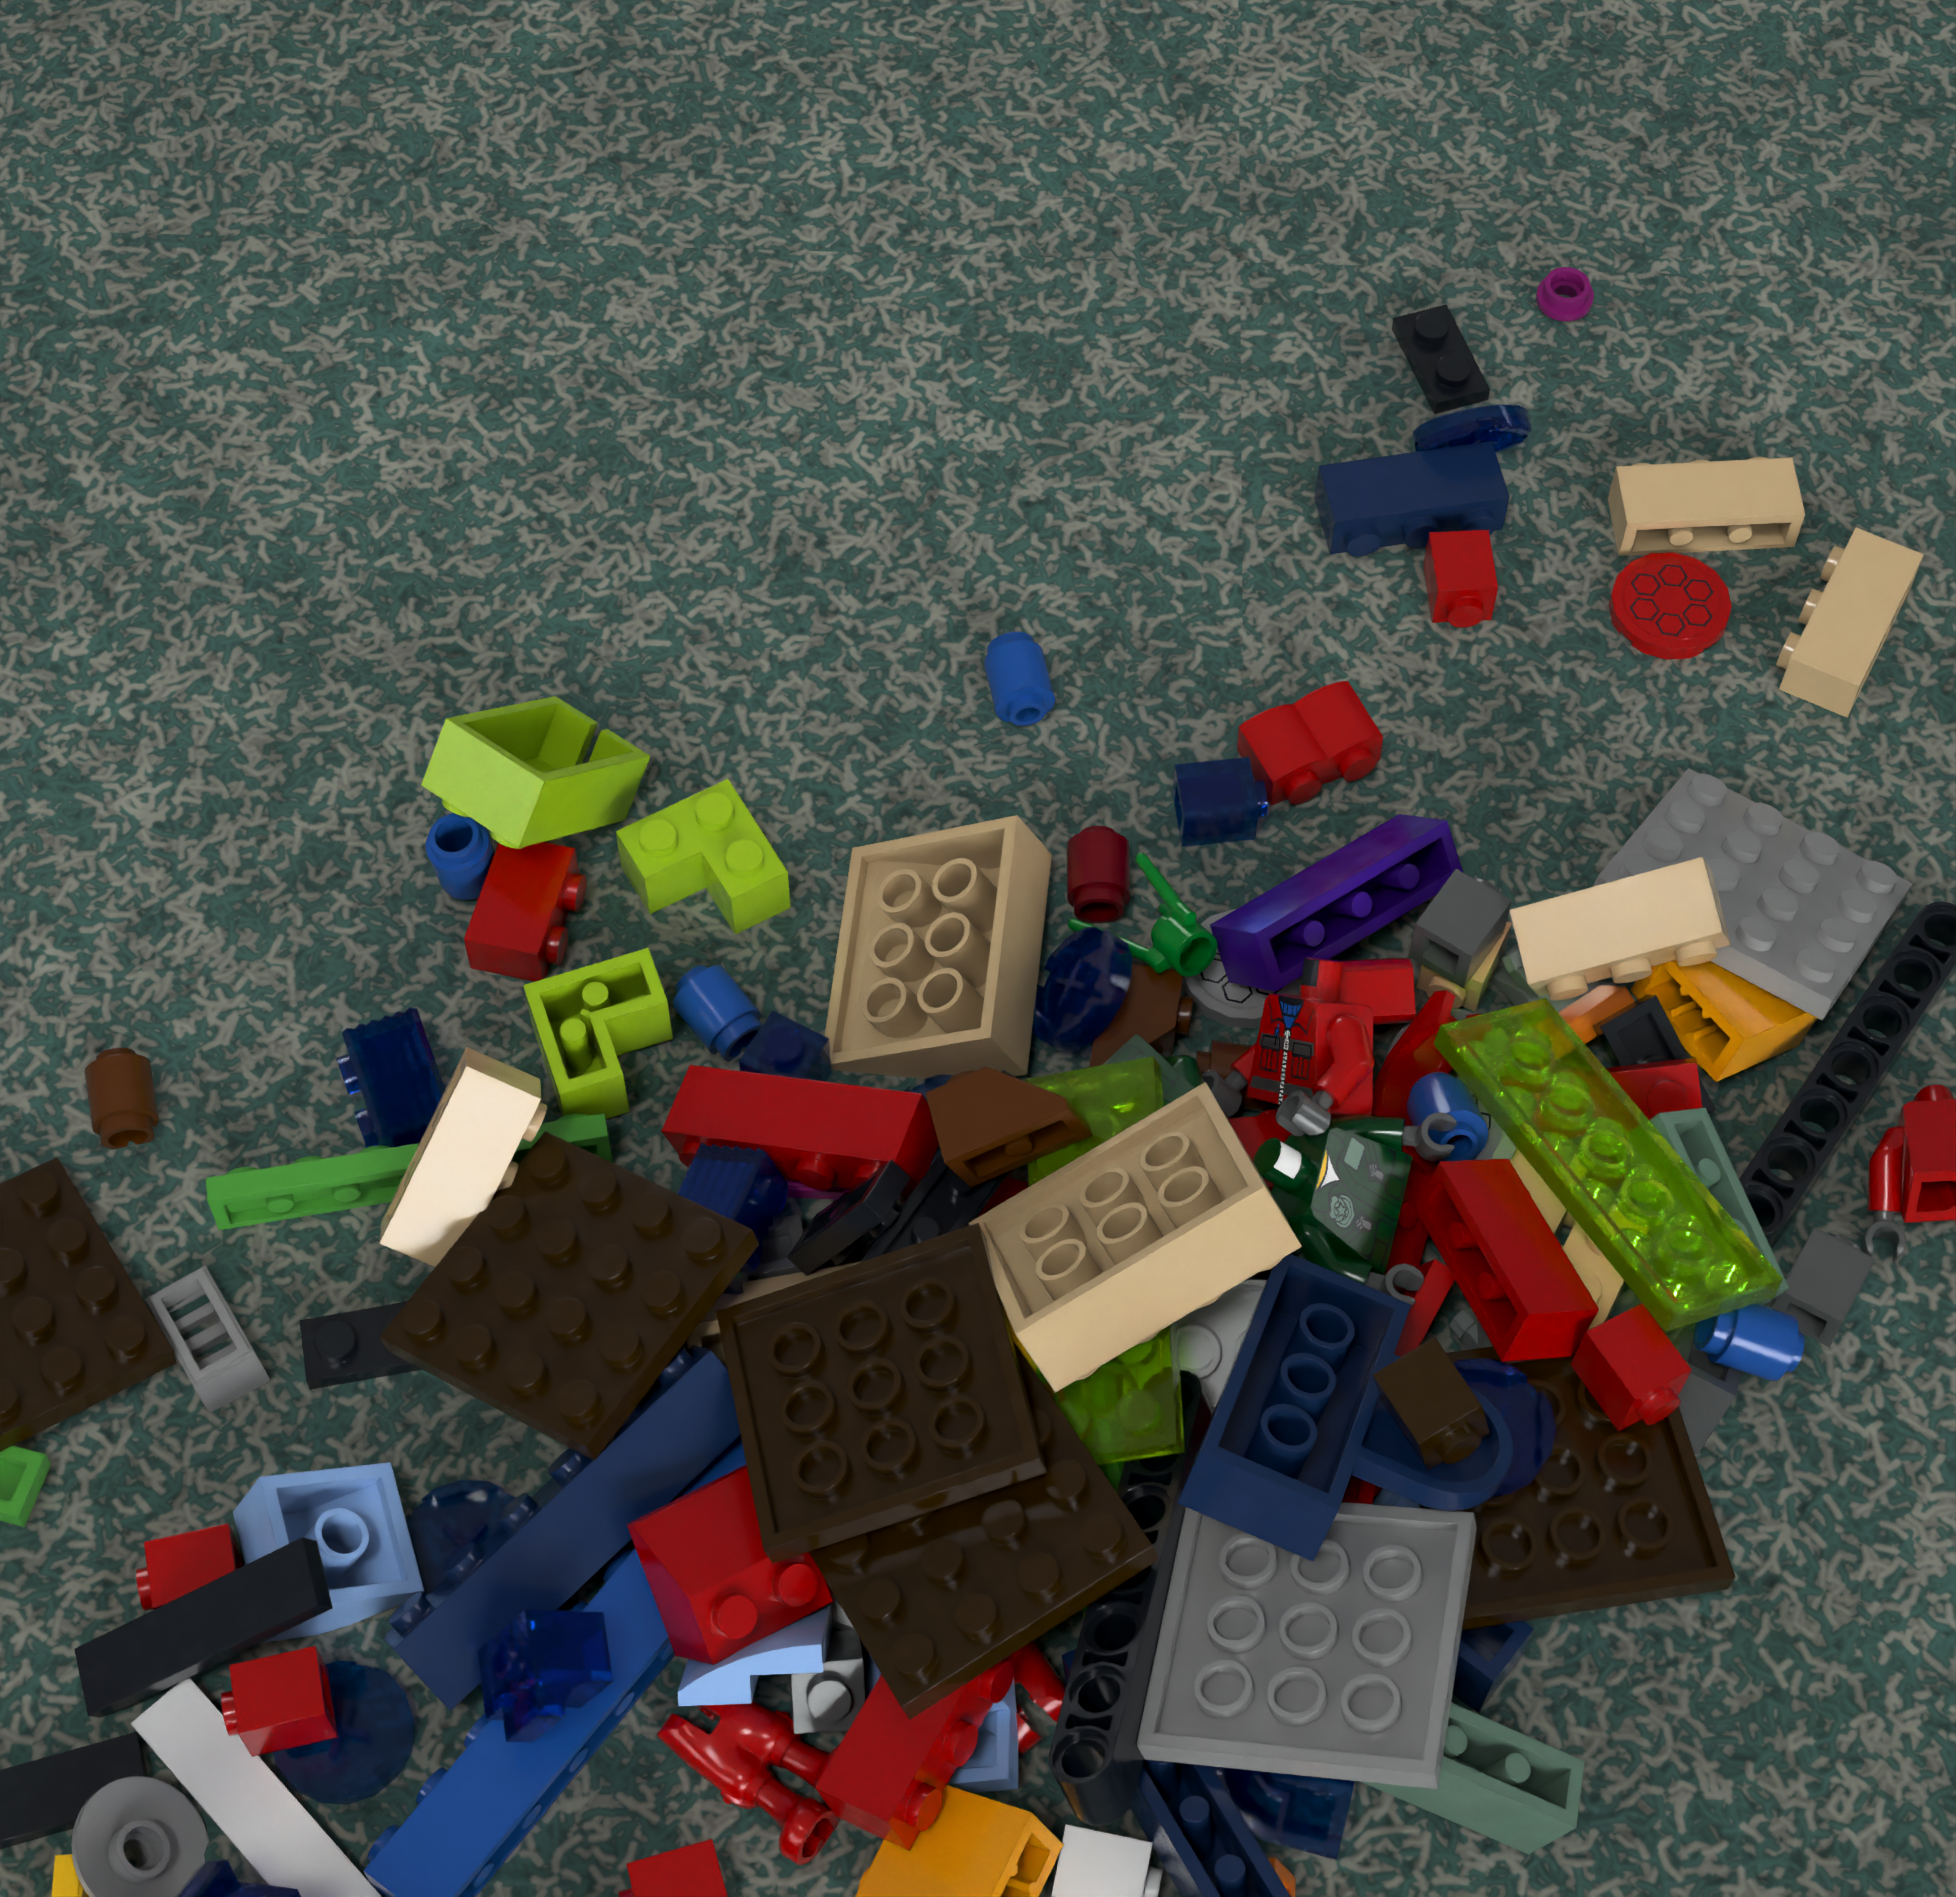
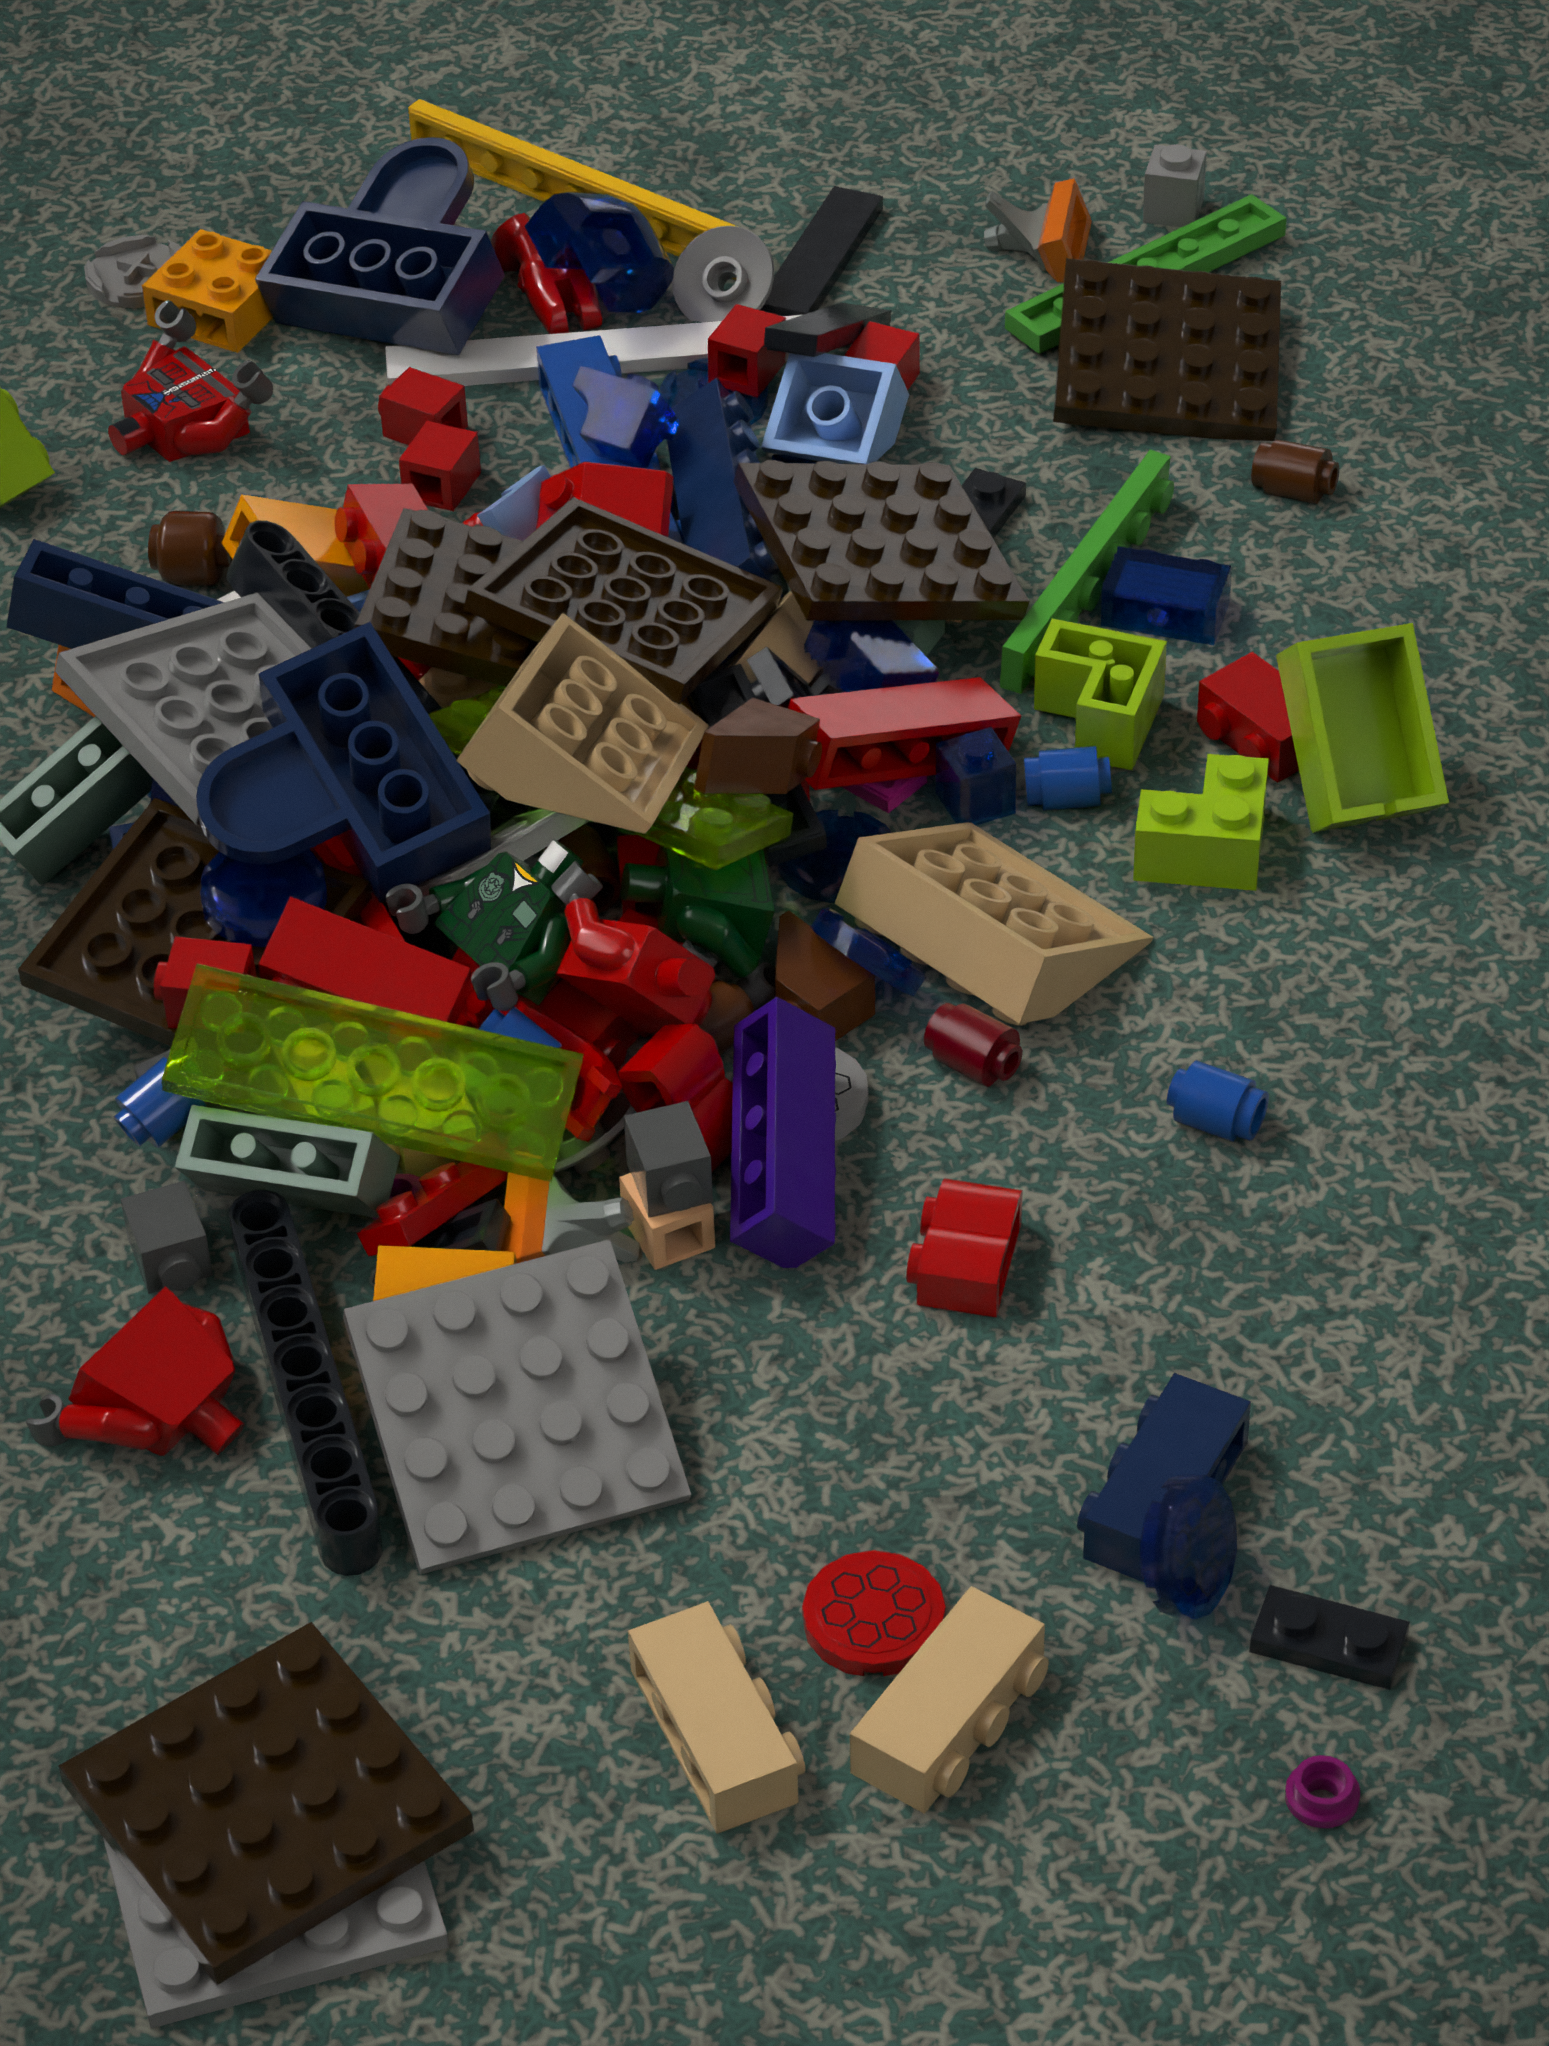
camera: 130 degrees right, 15 degrees down
(228, 1371) = (1048, 440): light grey slope -> none
(463, 1156) = (1050, 545): brick -> none
(1175, 936) = (846, 1010): green plant -> none
(1217, 801) = (969, 1143): clear blue brick -> none
(1432, 1405) = (275, 773): dark brown brick -> none
(1460, 577) = (1043, 1456): red brick -> none
(1621, 929) = (544, 1211): tan brick -> none

